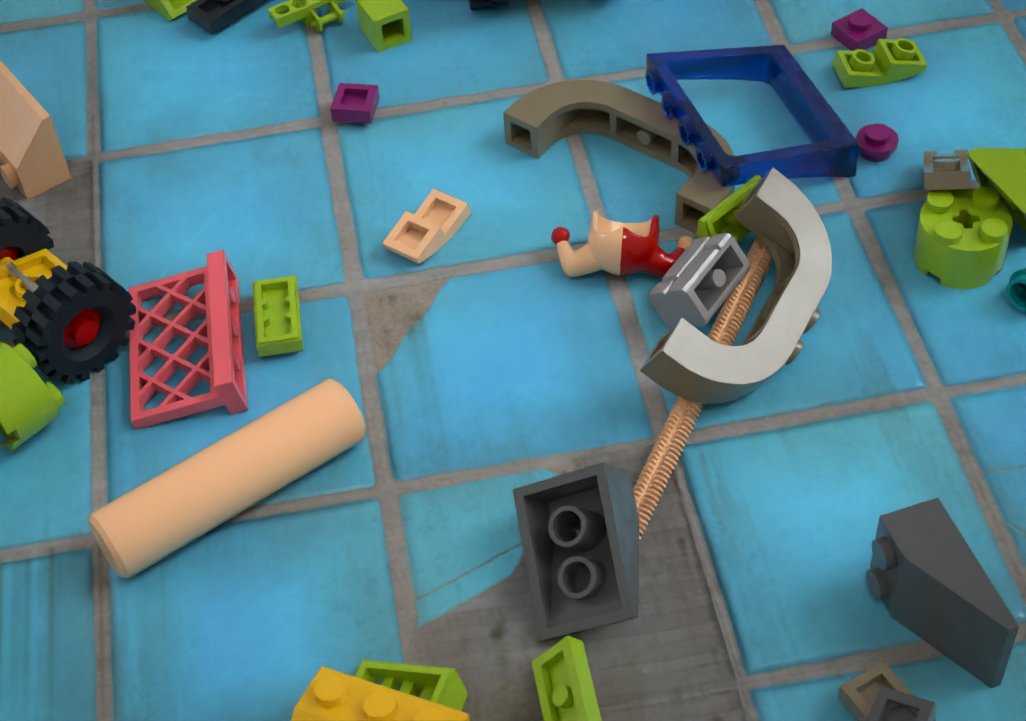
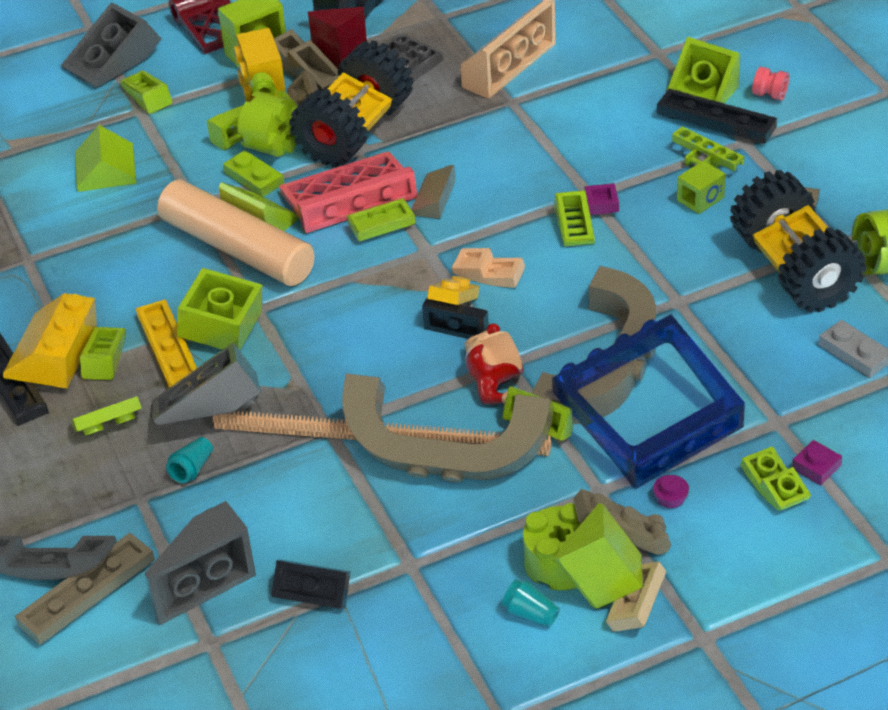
camera: 75 degrees right, 5 degrees down
(78, 451) = (253, 173): none -> lime plate
(180, 443) = (258, 206): none -> lime slope
(251, 251) = (434, 192): none -> dark tan slope
(367, 133) = (573, 201): none -> lime slope
(410, 511) = (219, 309): none -> lime brick
(428, 606) = (169, 350): none -> yellow tile
(480, 255) = (454, 290): none -> yellow plate
(523, 268) = (454, 319): none -> black plate
(699, 599) = (188, 461): none -> teal cone
(700, 280) = (462, 406): light grey brick -> none
(976, 485) = (311, 584): none -> black plate

